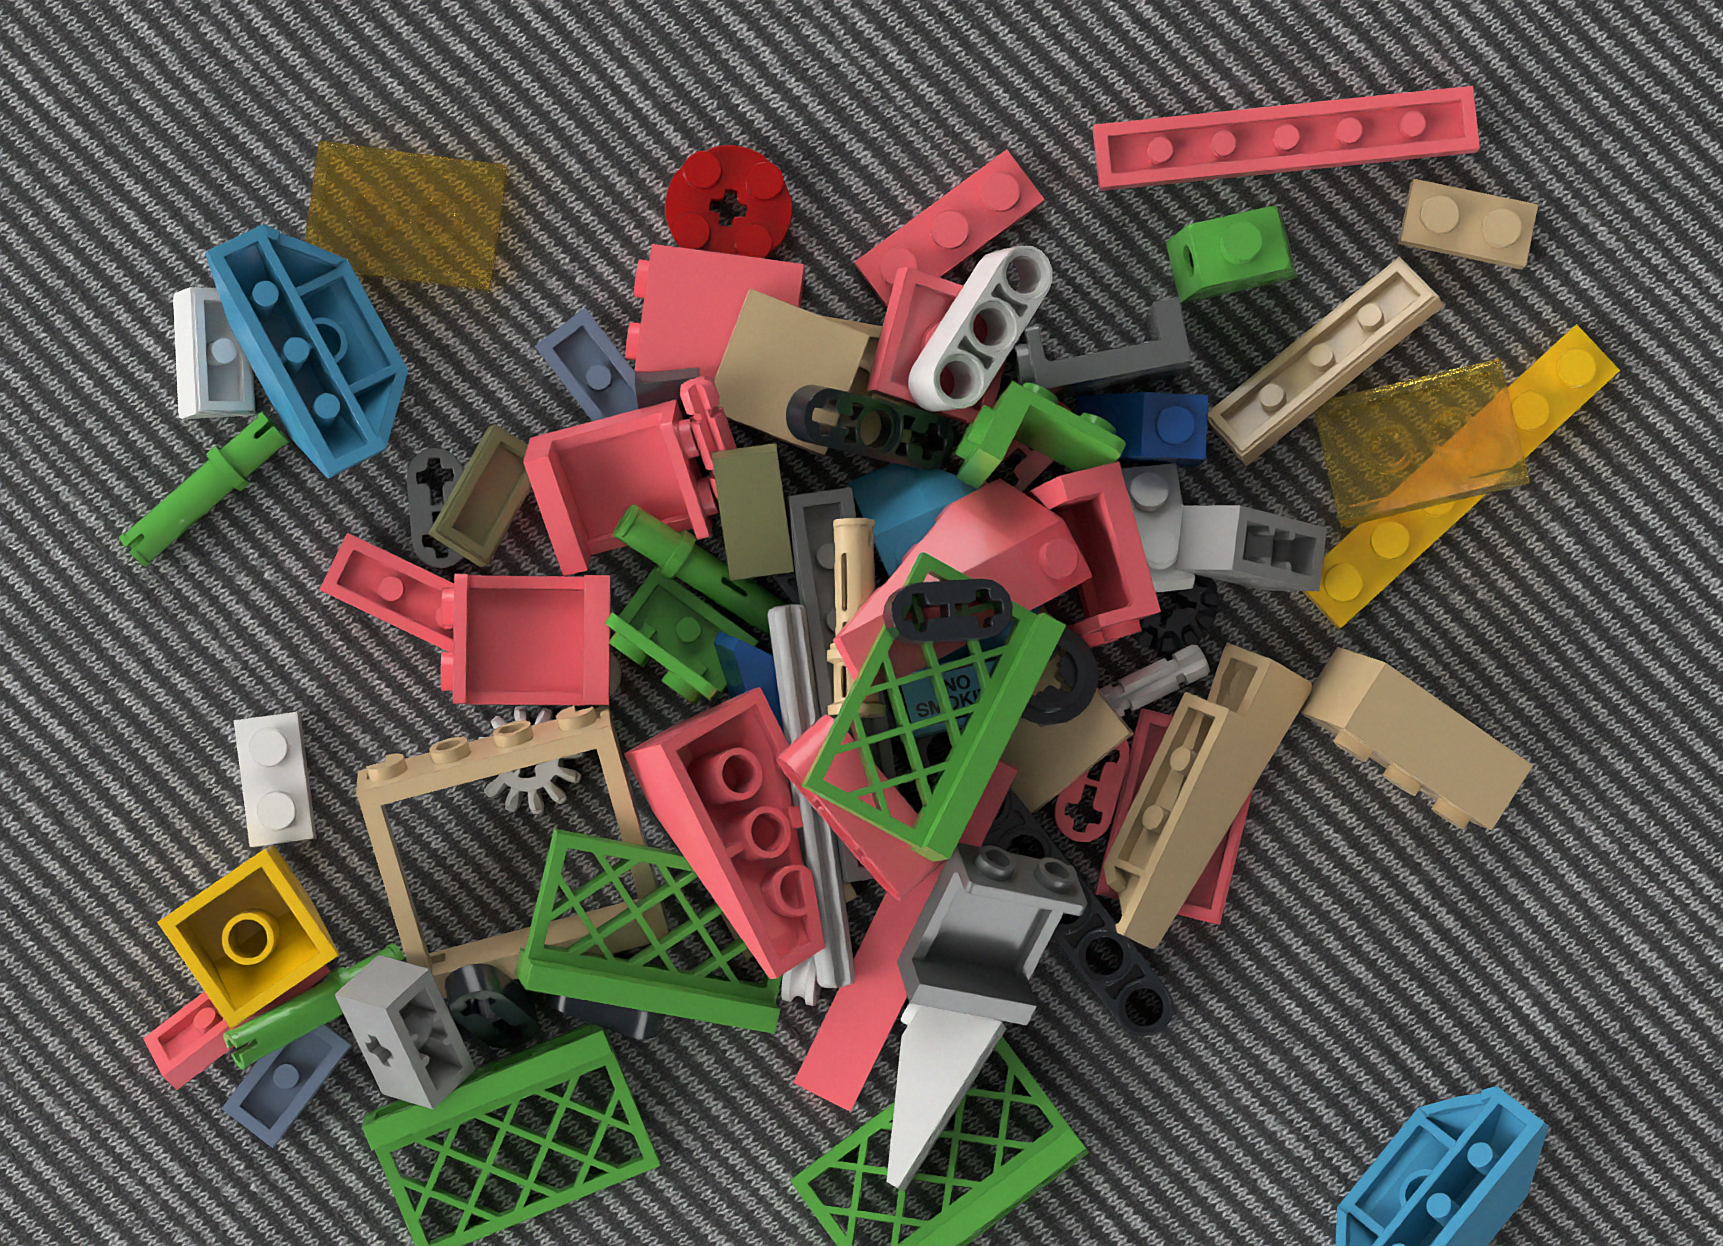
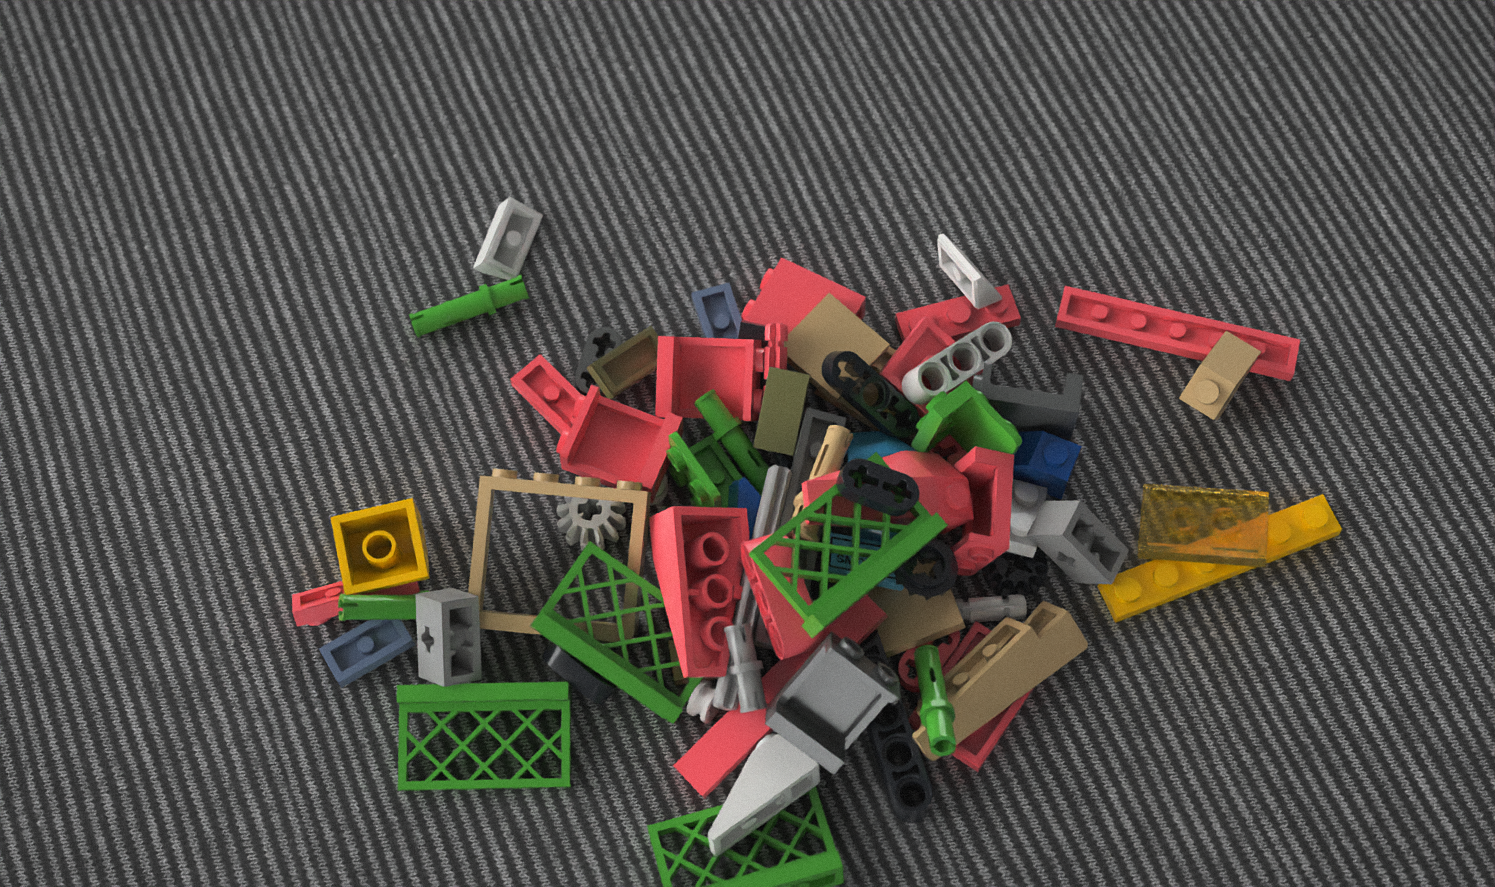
camera: 20 degrees right, 20 degrees down
(275, 779) = (438, 477): white plate -> none
(311, 344) = (564, 243): dark azure wedge -> none
(408, 214) = (647, 207): clear yellow tile -> none
(491, 1006) = (499, 646): black beam -> none
(729, 170) = (837, 243): red plate -> none
(849, 926) = (745, 667): none -> light grey pin
(941, 160) = (965, 274): none -> white slope
(1141, 891) = (937, 712): none -> bright green pin
(1231, 254) = (1123, 379): bright green torso -> none
(1323, 361) = (1158, 462): tan tile -> none
(1373, 199) = (1220, 375): none -> tan slope
(1415, 738) = (1145, 696): tan wedge -> none
(1468, 224) = (1272, 418): tan plate -> none

